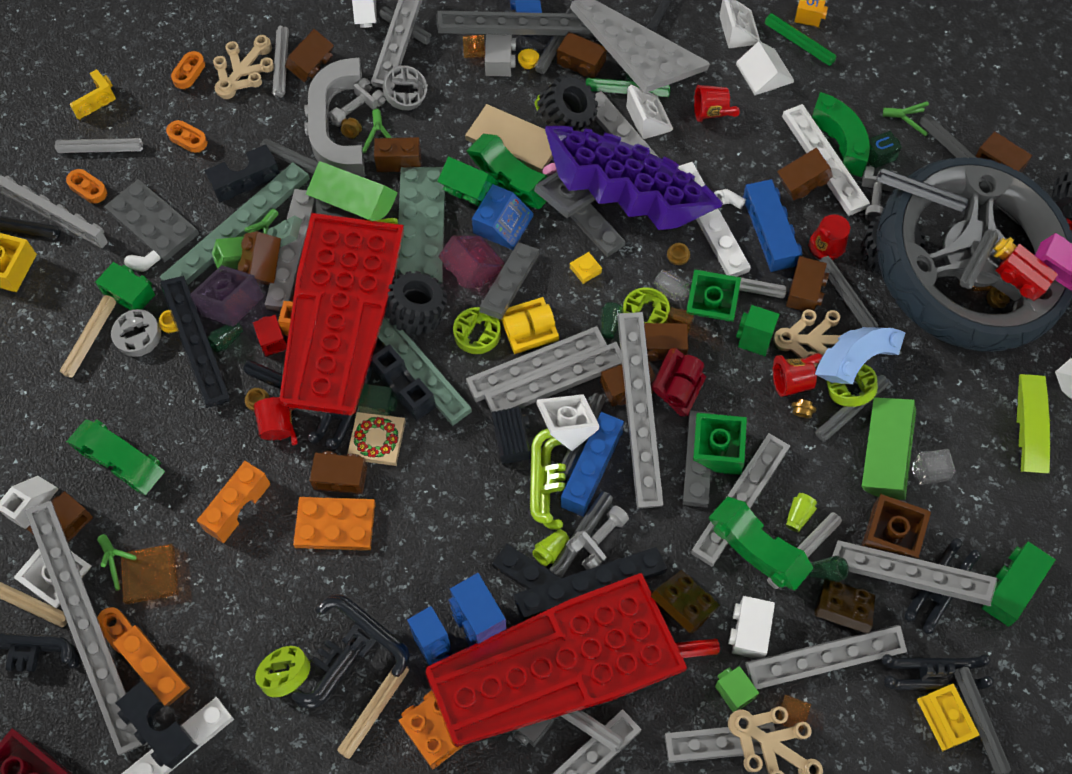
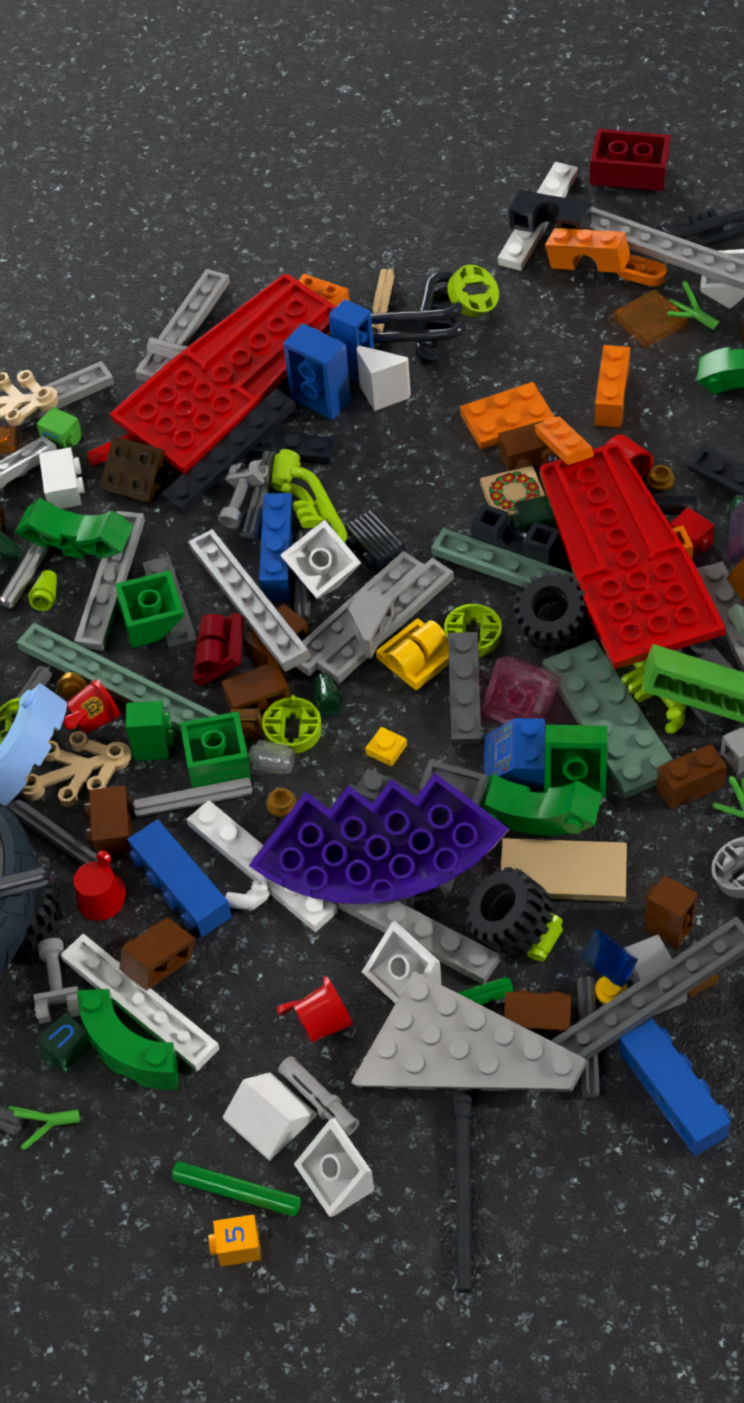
camera: 160 degrees right, 10 degrees down
(317, 430) = (563, 440): none -> orange plate
(421, 590) = (383, 377): none -> white slope
(468, 71) = (670, 911): none -> reddish brown brick
(521, 63) = (609, 958): none -> clear blue tile
(552, 350) = (370, 618): none -> light grey slope
(729, 59) = (328, 1105): none -> light grey pin
(767, 401) = (116, 679): none -> sand green plate

